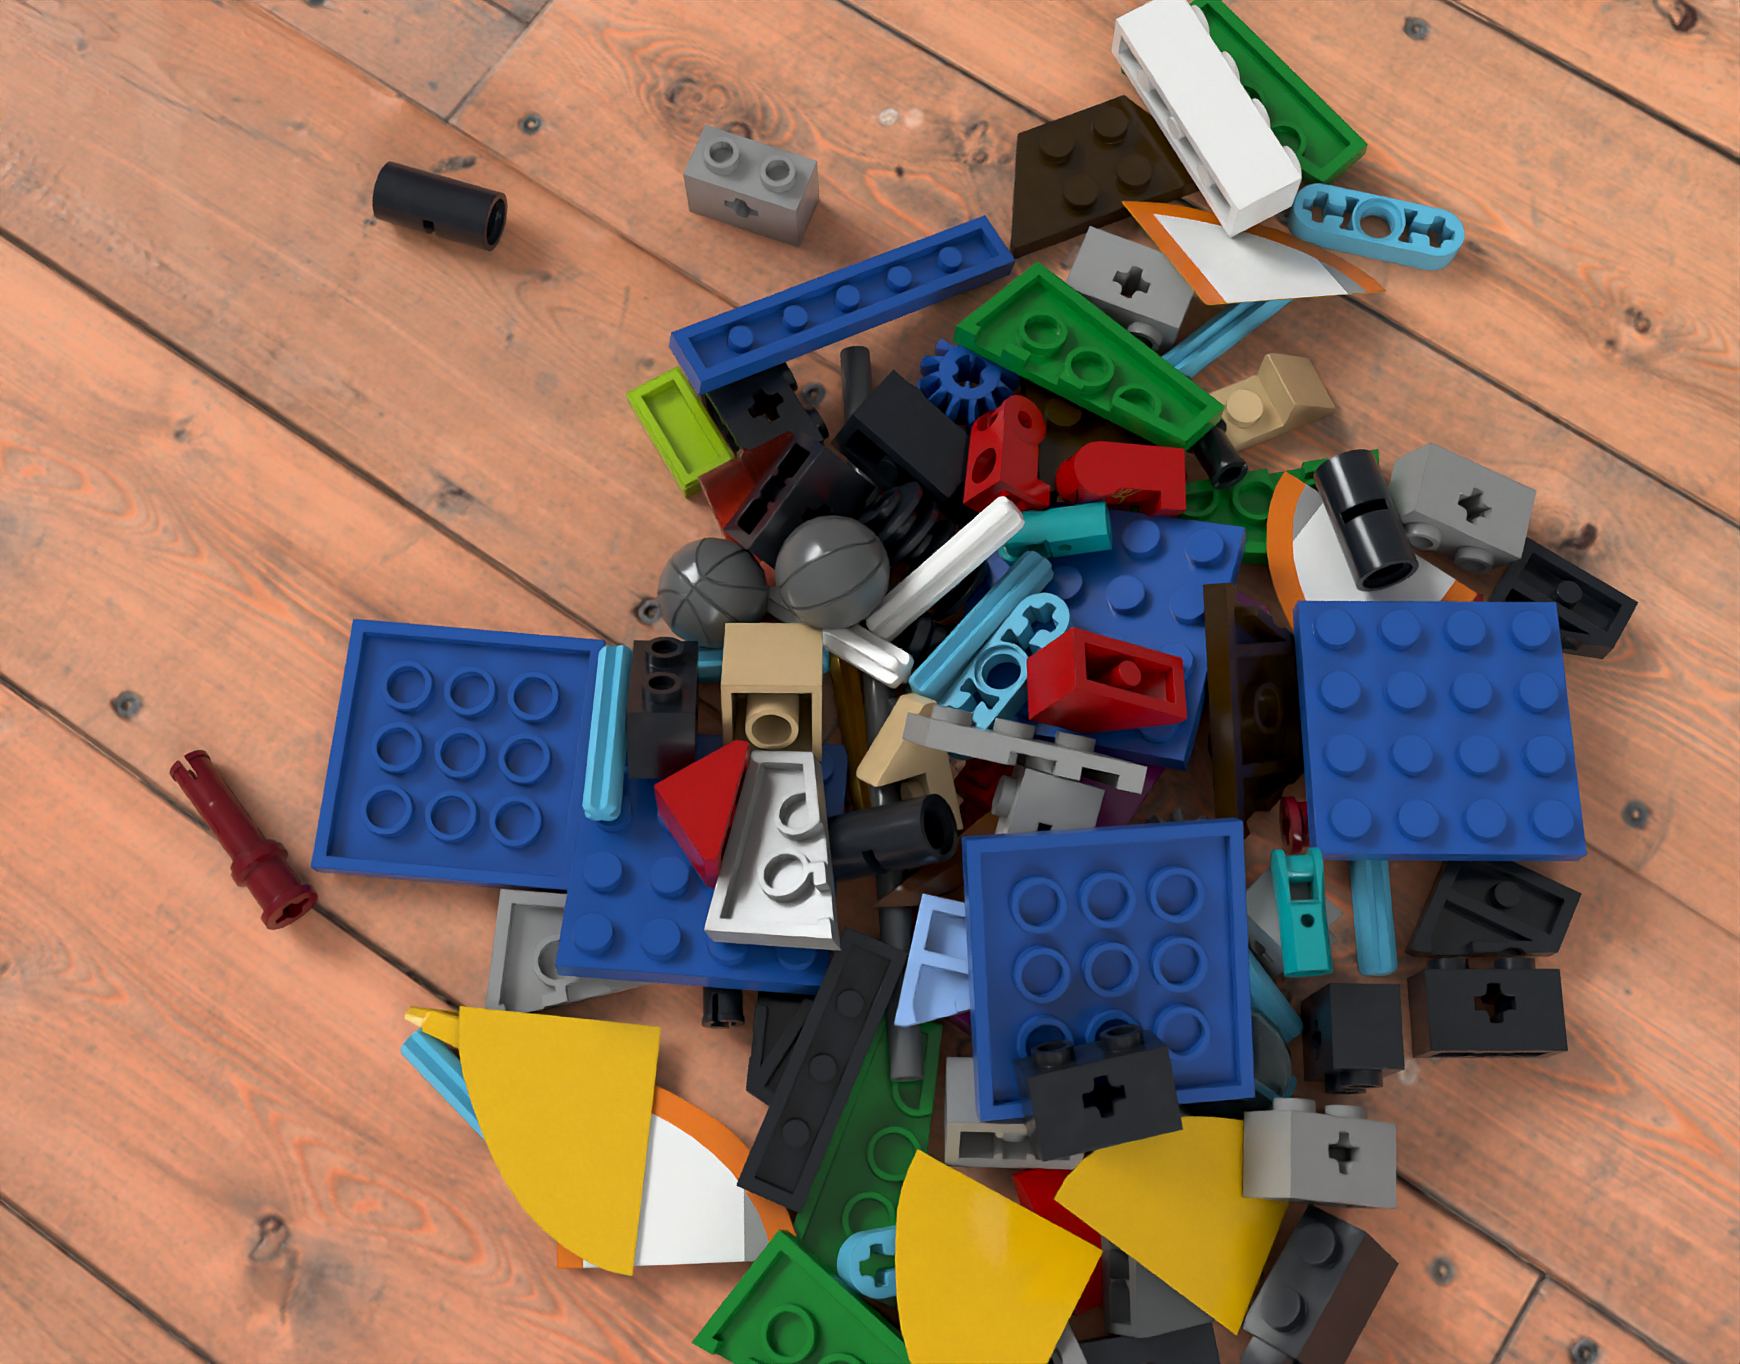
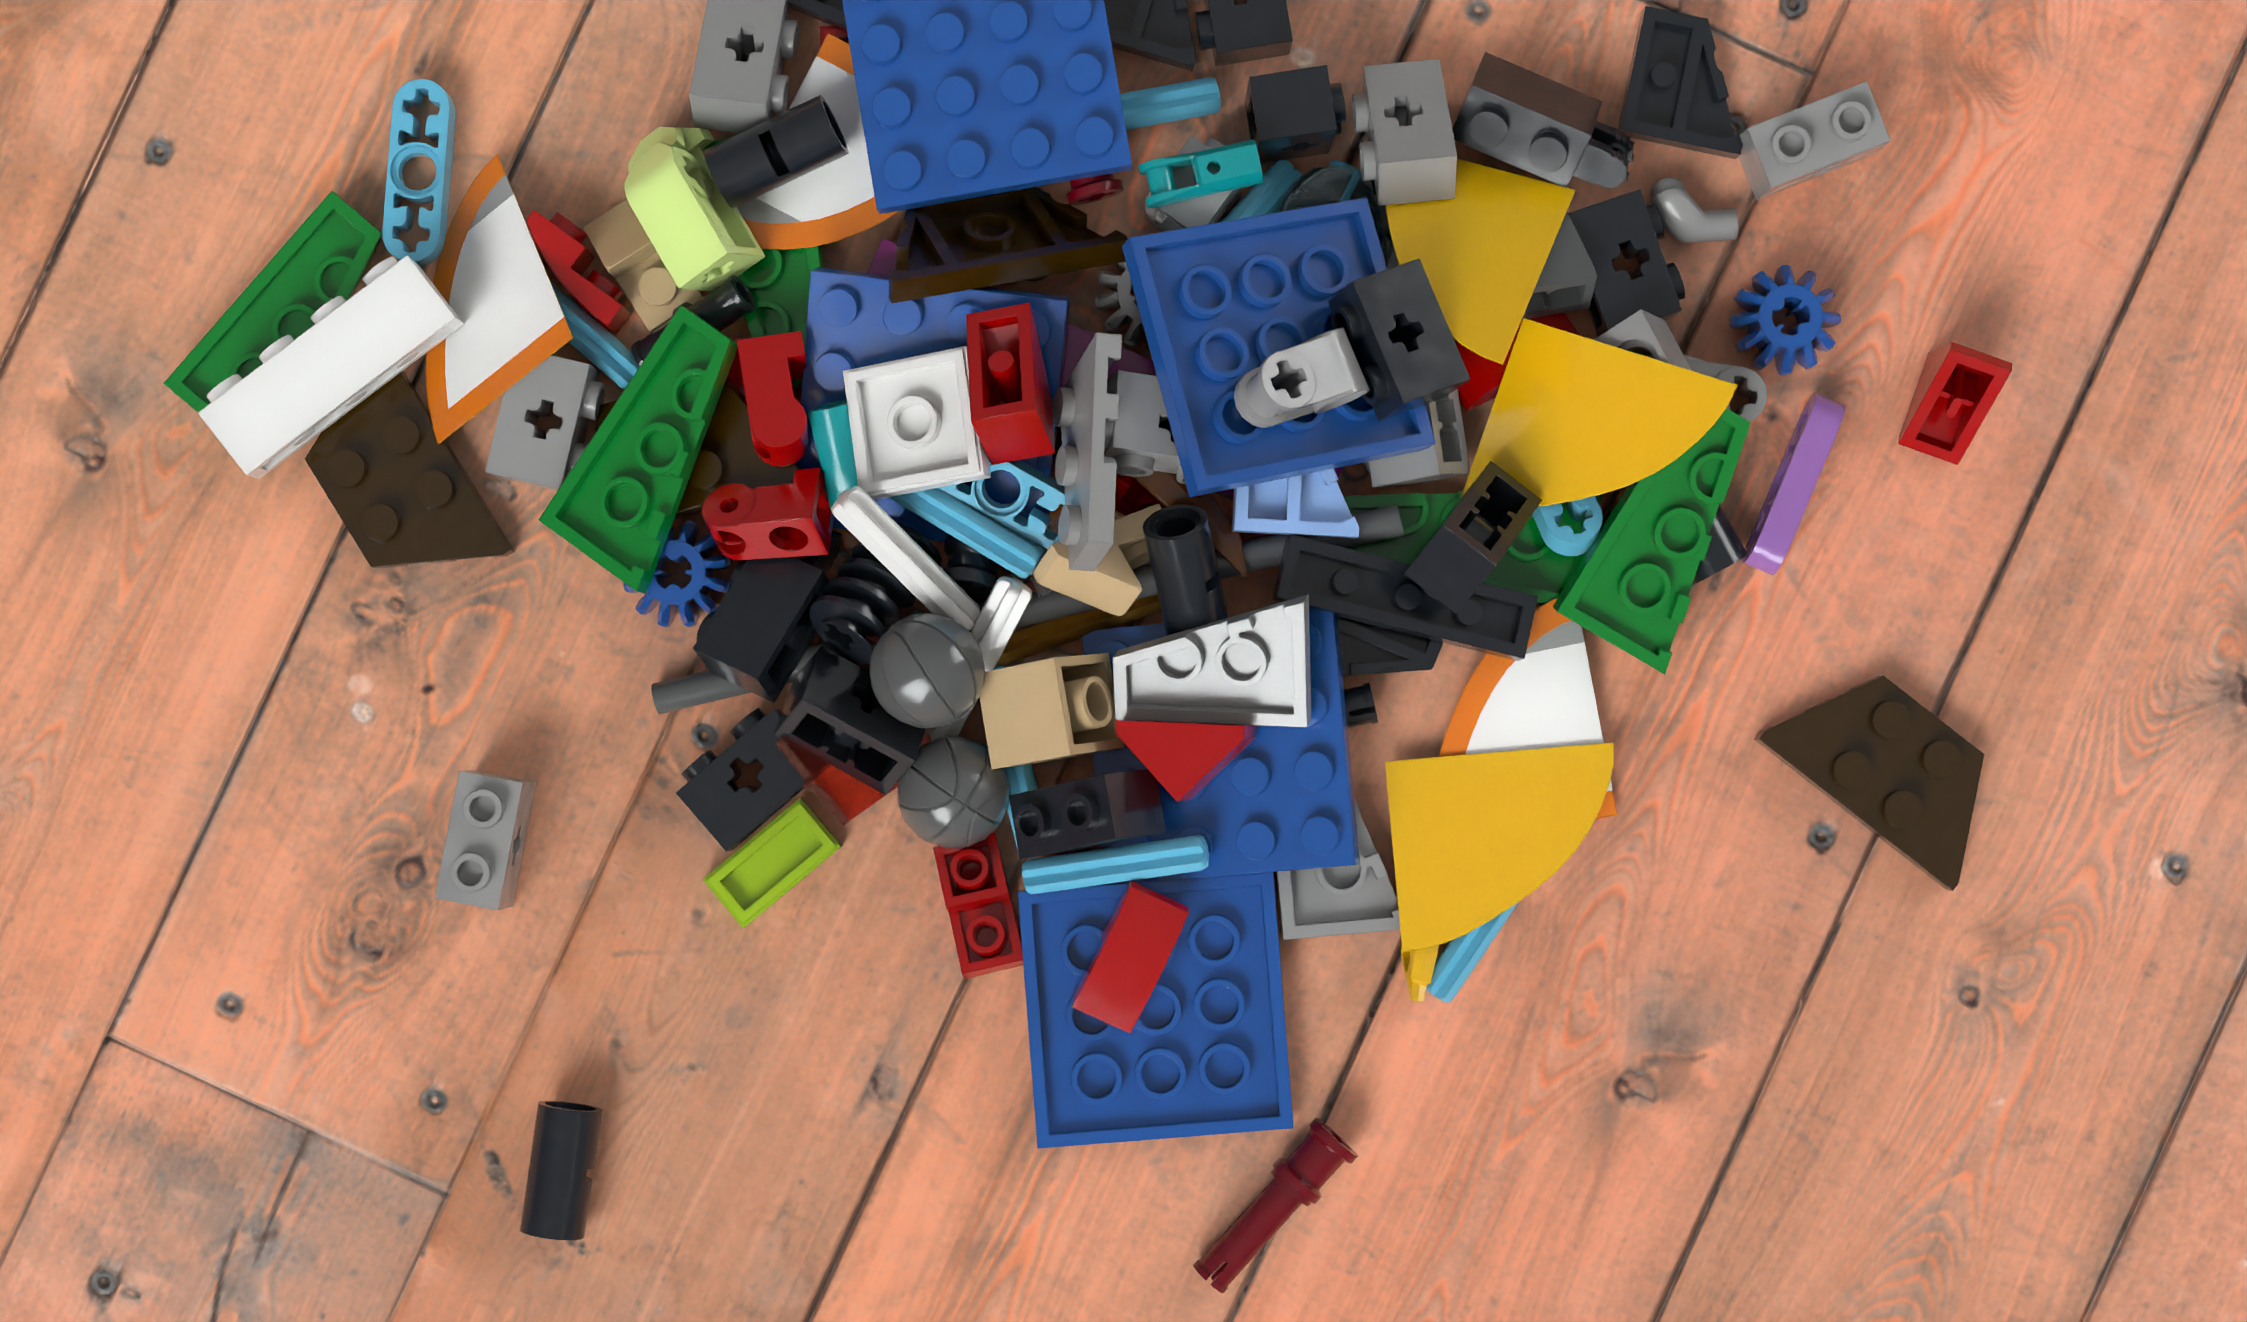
camera: 100 degrees left, 15 degrees up
(514, 728) = (1130, 957): none -> red slope
(610, 608) = (979, 907): none -> red slope
(840, 304) = (618, 714): blue plate -> none
(873, 1144) = (1473, 537): none -> black brick
(1070, 984) = (1301, 381): none -> light grey piece
(1076, 584) = (914, 424): none -> white tile
(1280, 331) = (563, 251): none -> red slope
(1304, 426) = (685, 212): none -> yellowish green piece

